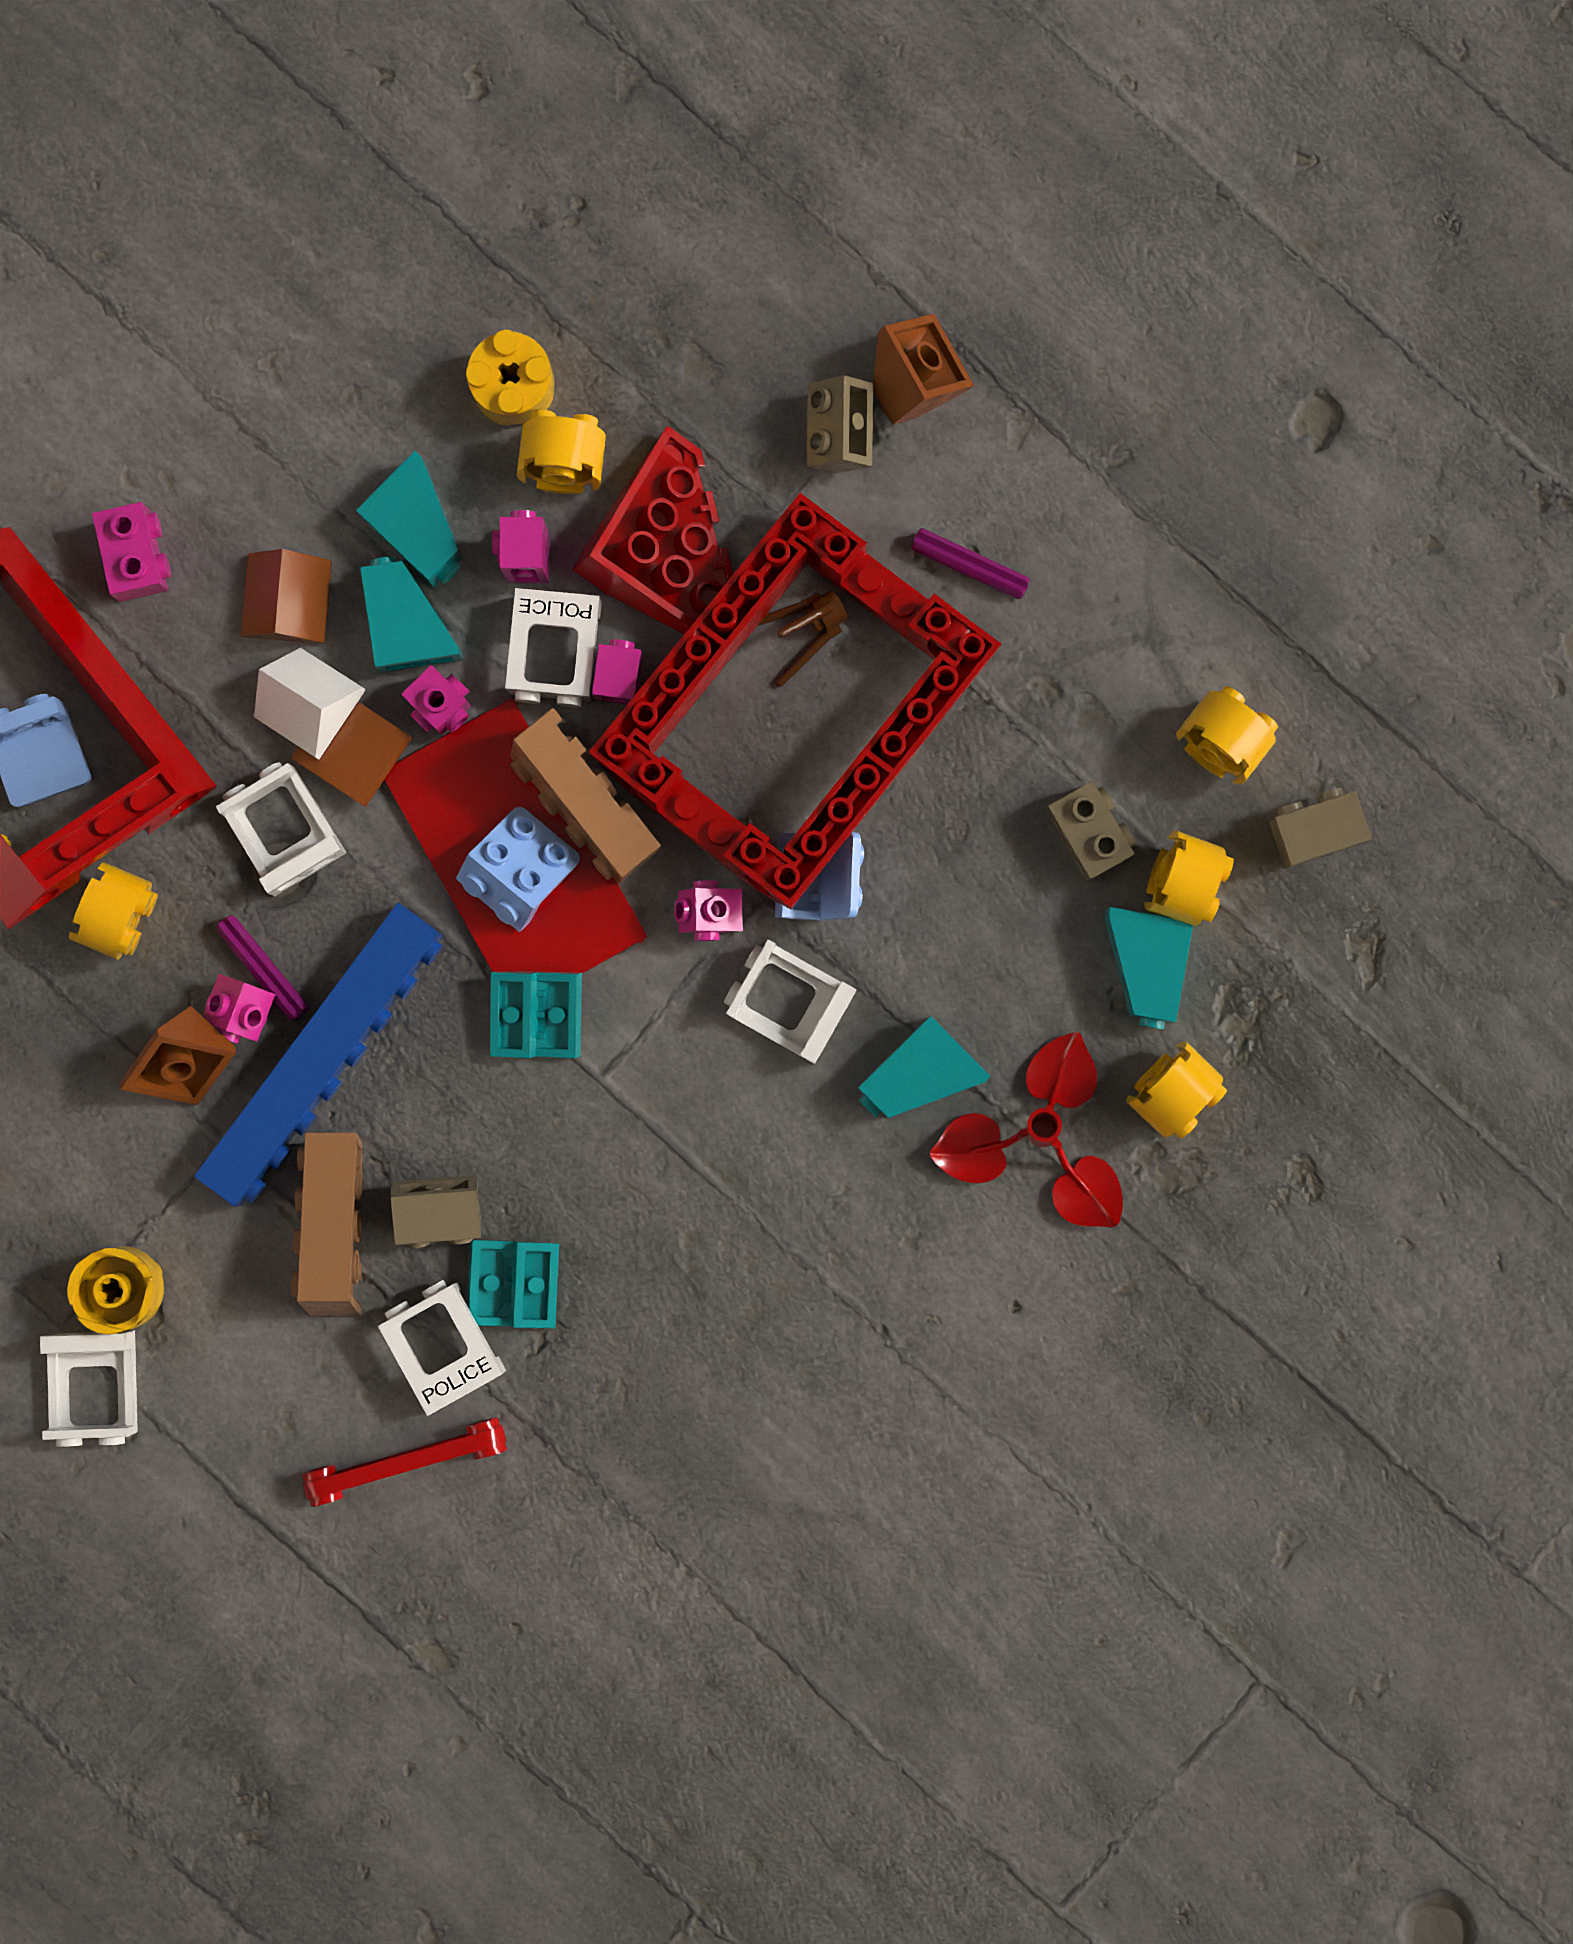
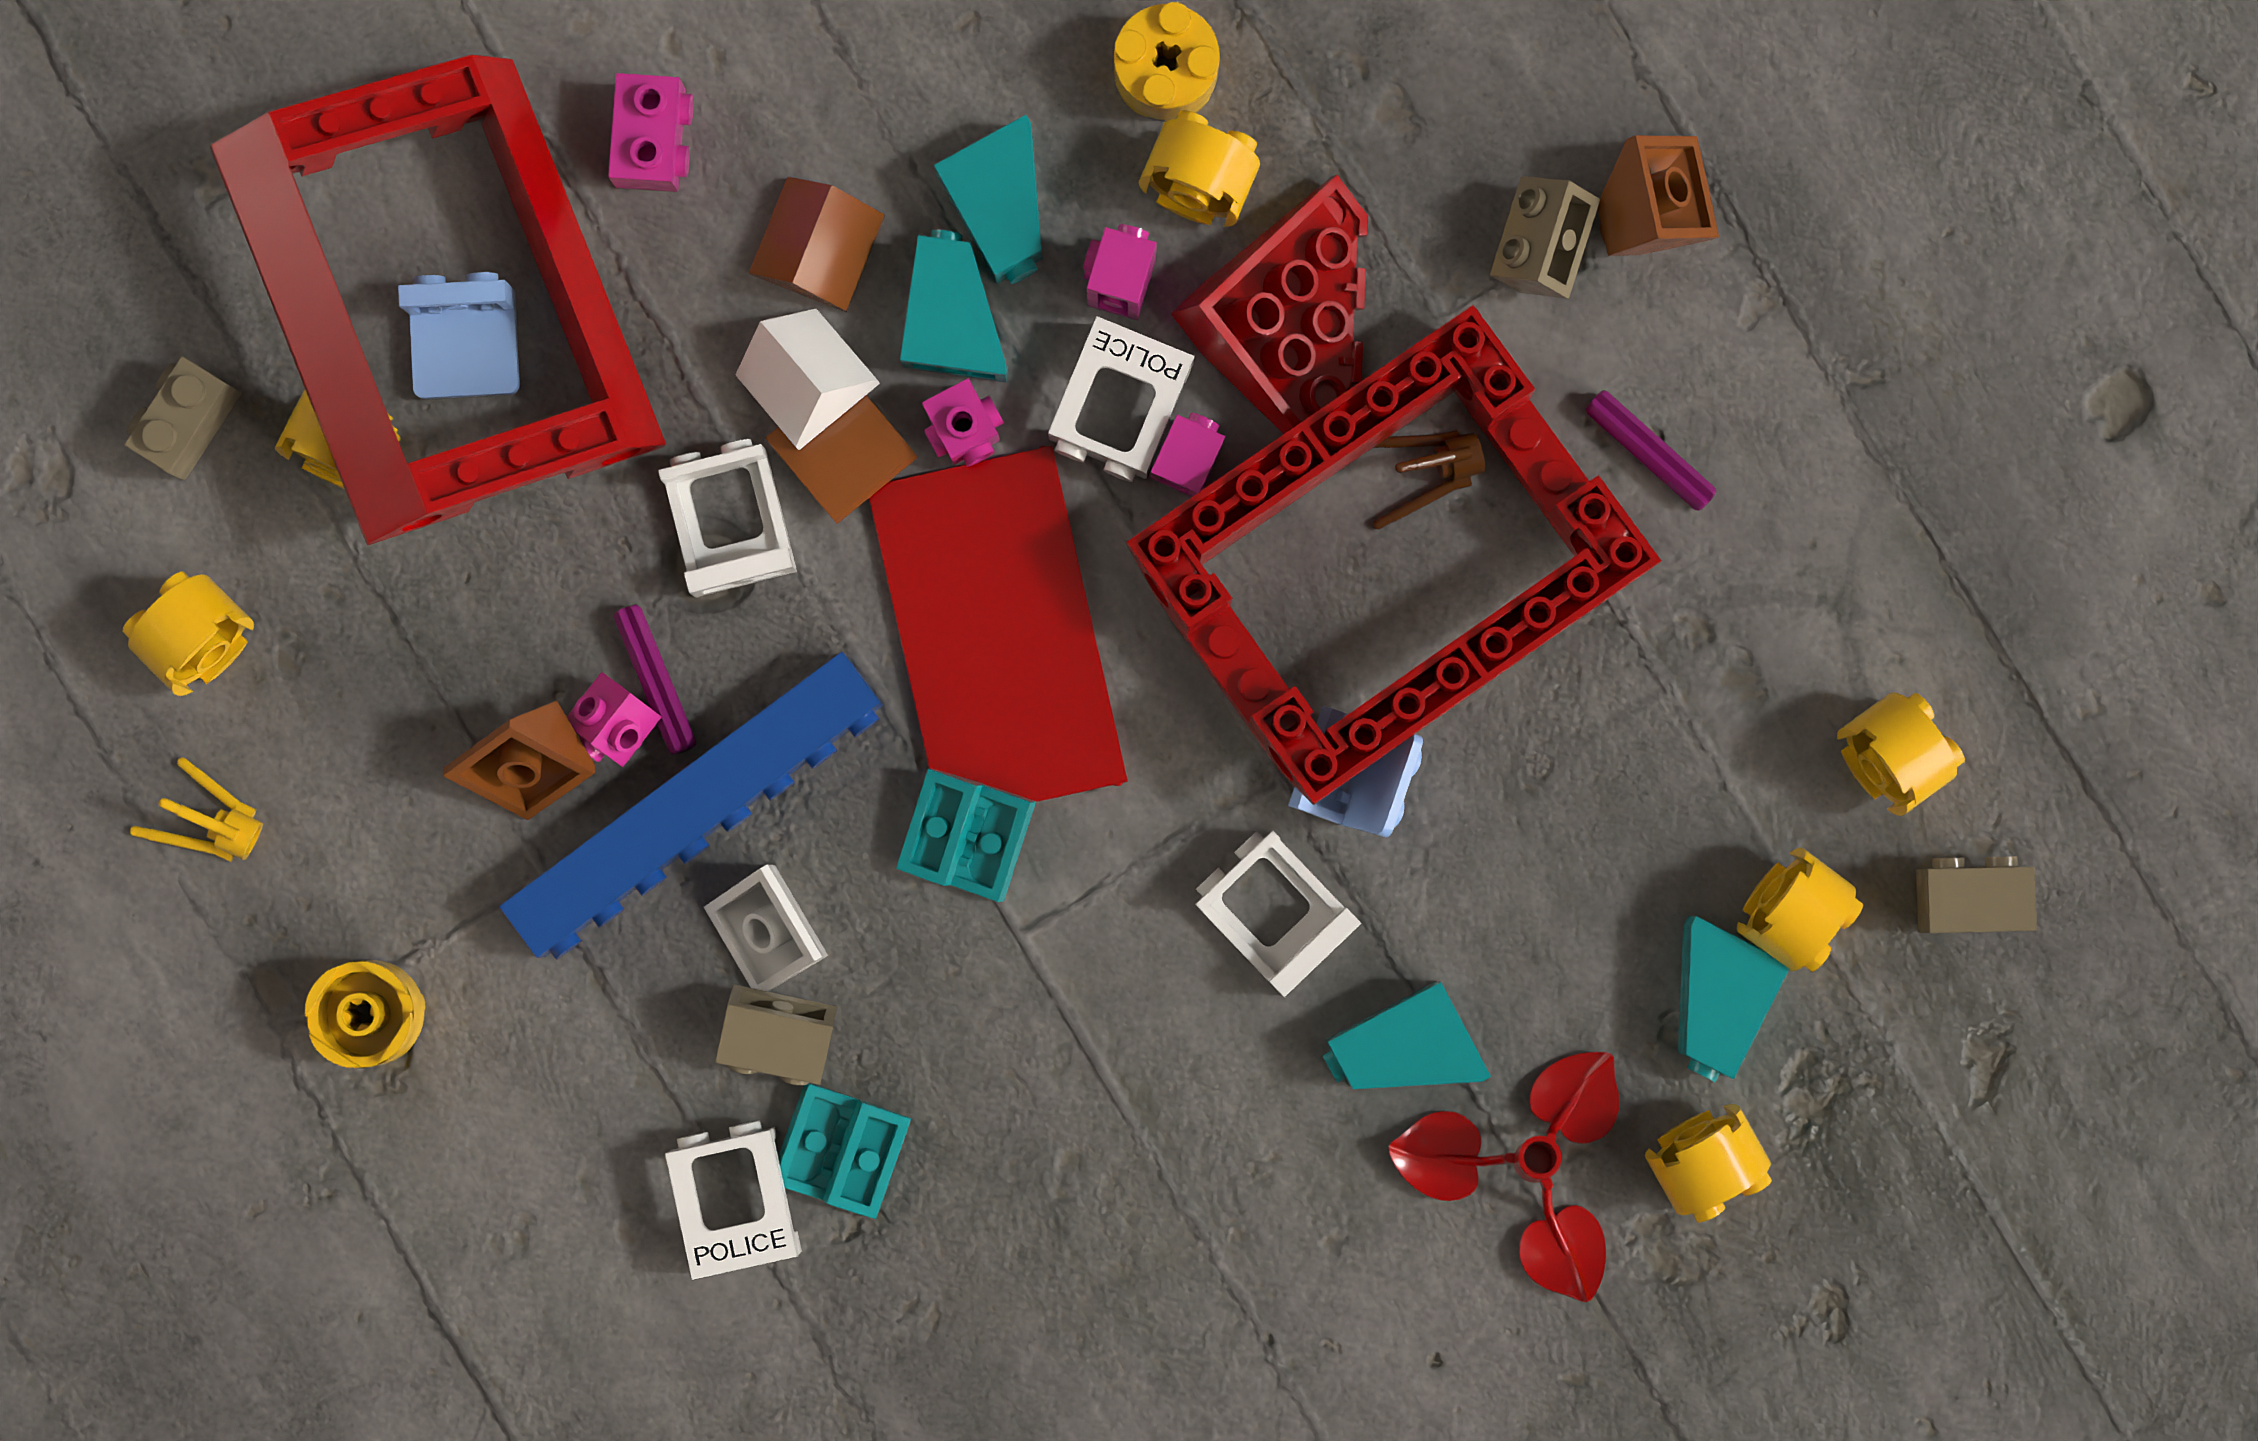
camera: 10 degrees right, 0 degrees up
(89, 1350) = (310, 1075): white window -> none
(112, 912) = (497, 558): yellow brick -> none
(326, 1484) = (749, 1326): red piece -> none
(328, 1225) = (643, 1012): medium nougat wedge -> none
(404, 1132) = (765, 929): none -> white slope
(517, 867) = (997, 652): light blue bracket -> none
(582, 798) = (1100, 593): medium nougat wedge -> none
(708, 910) = (1212, 774): dark pink brick -> none
(1091, 831) = (1700, 817): dark tan brick -> none

